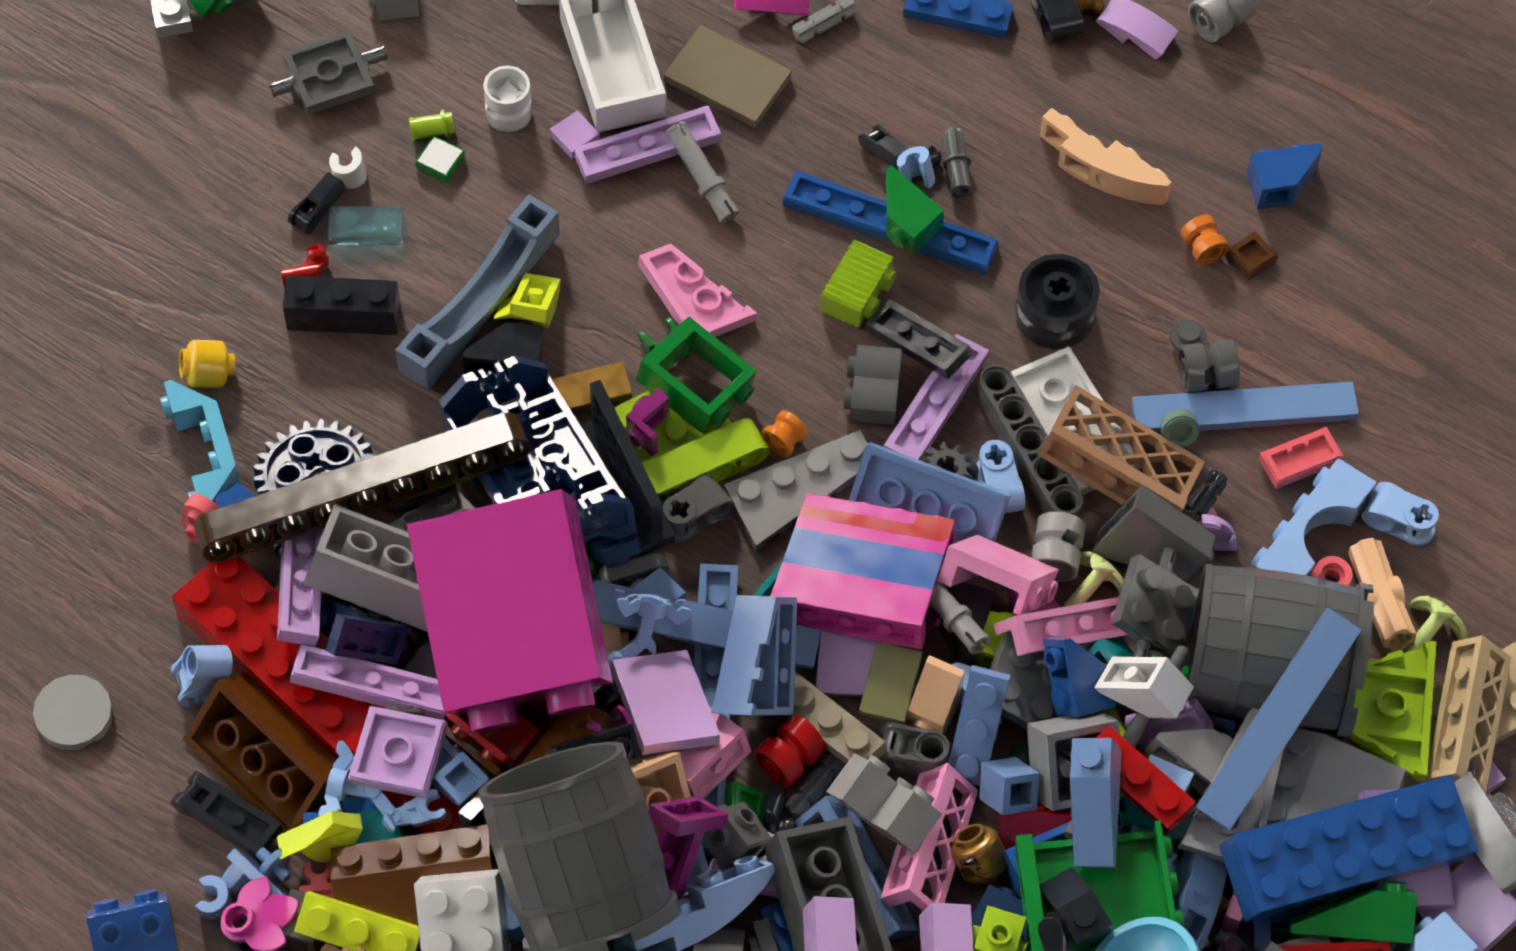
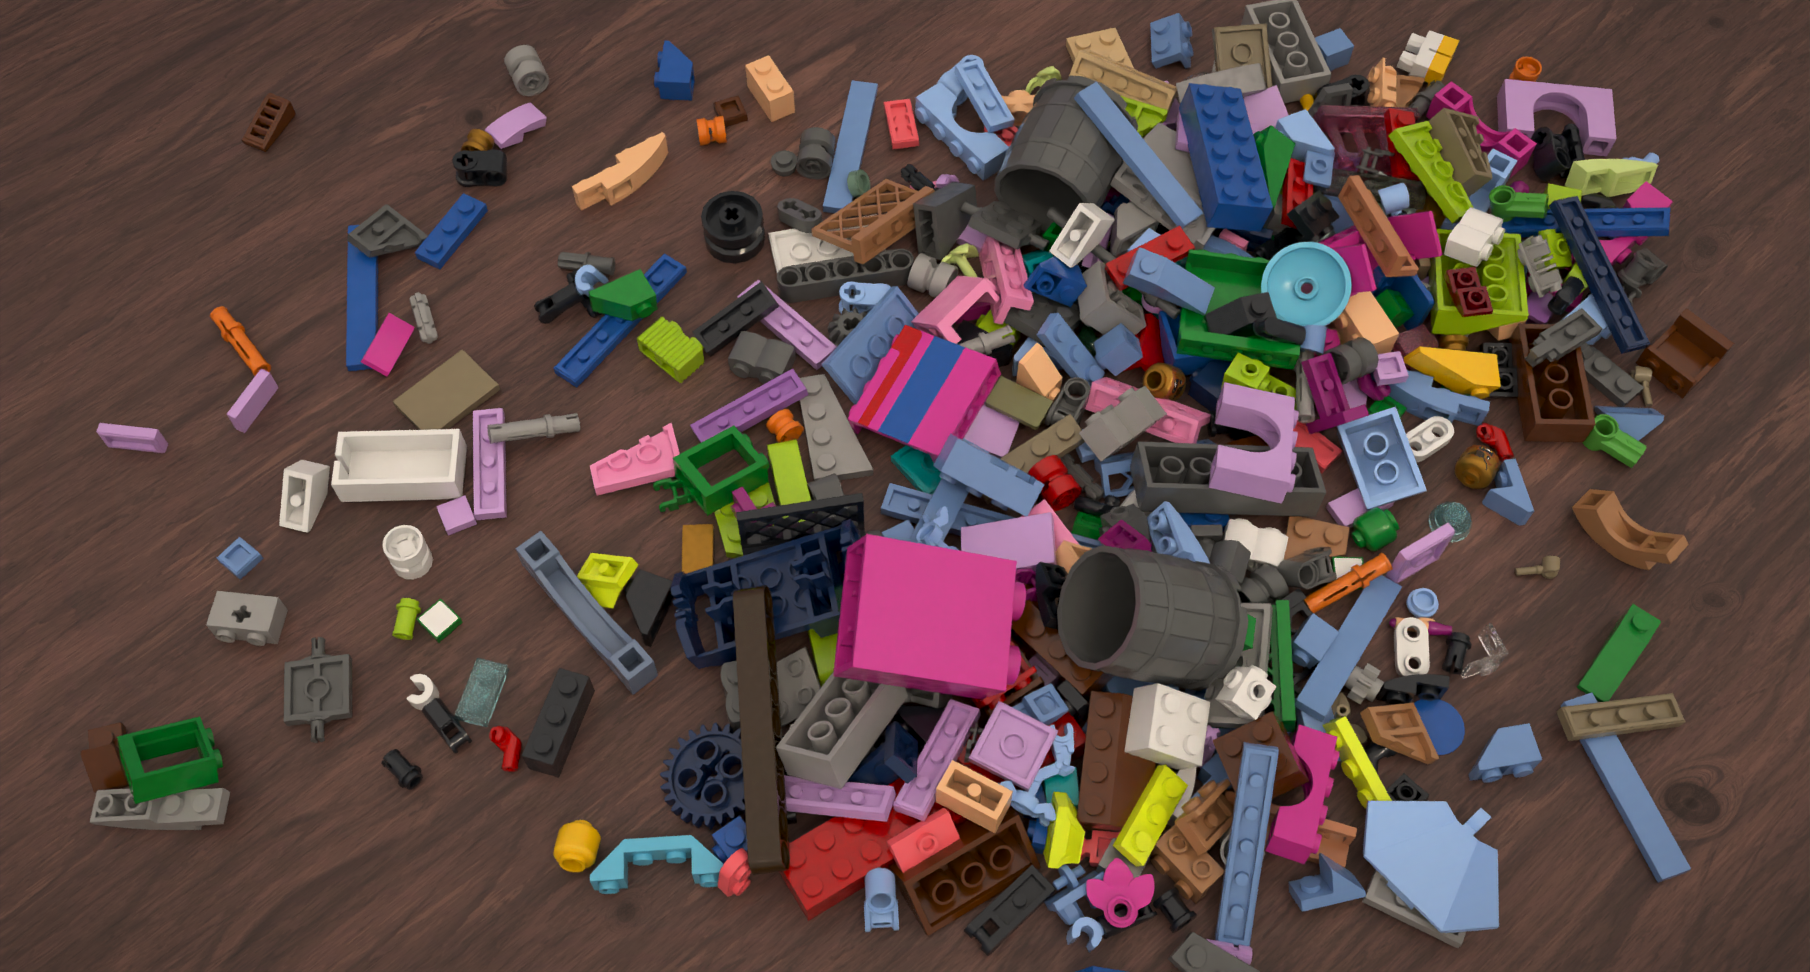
camera: 75 degrees left, 0 degrees up
(254, 182) = (407, 774): none -> black pin
(273, 691) = (923, 840): none -> coral plate
(323, 720) = (973, 796): none -> light nougat brick
(799, 390) = (752, 406): none -> medium lavender plate
(1109, 375) = (799, 214): none -> dark grey beam
(1296, 287) = (770, 88): none -> light nougat brick
(1364, 536) = (984, 95): none -> light blue plate

